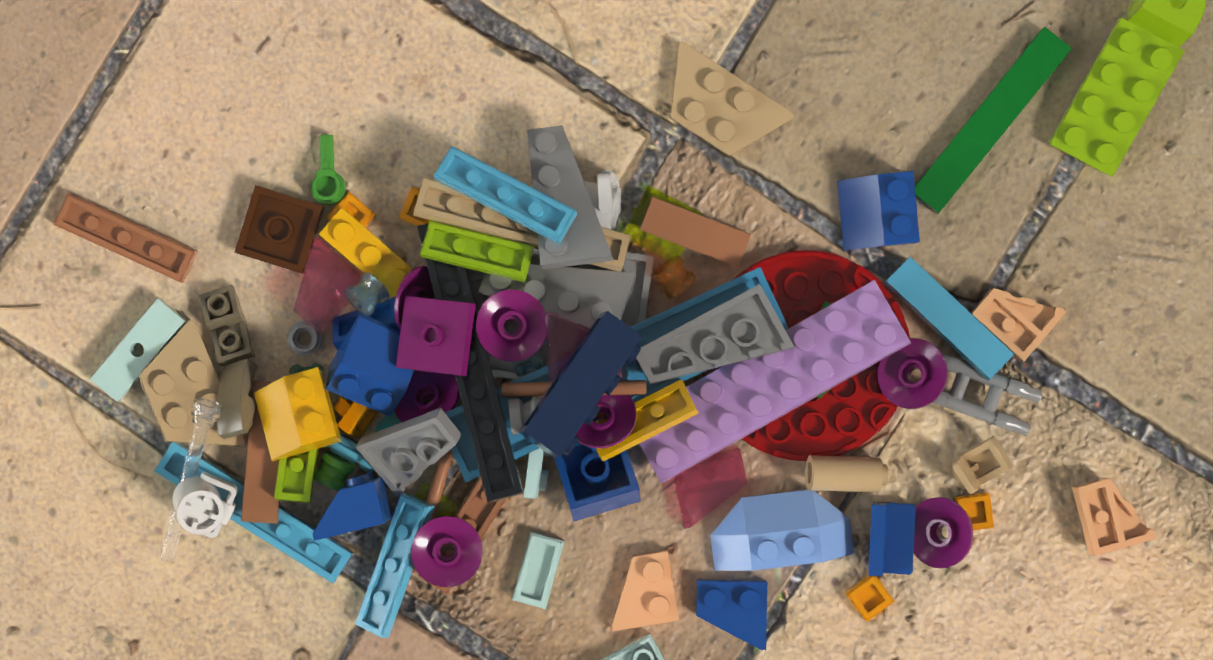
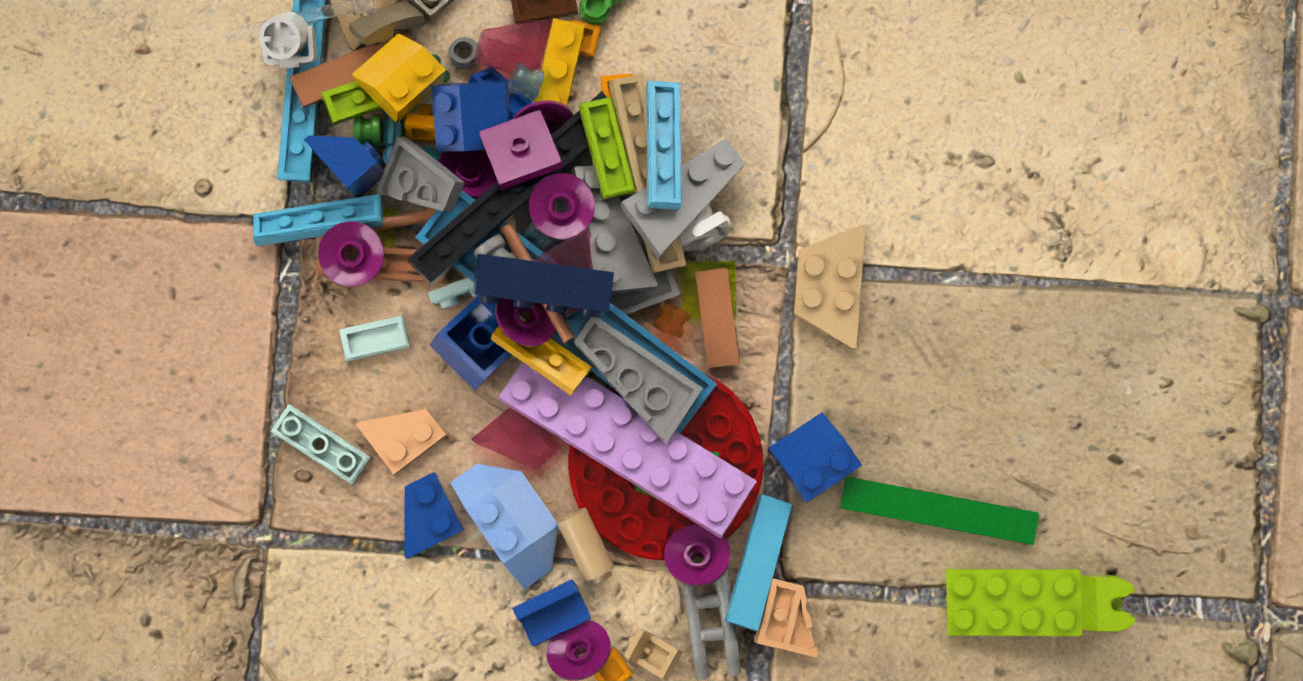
camera: 60 degrees right, 5 degrees down
(869, 597) = (495, 622): light orange tile -> none

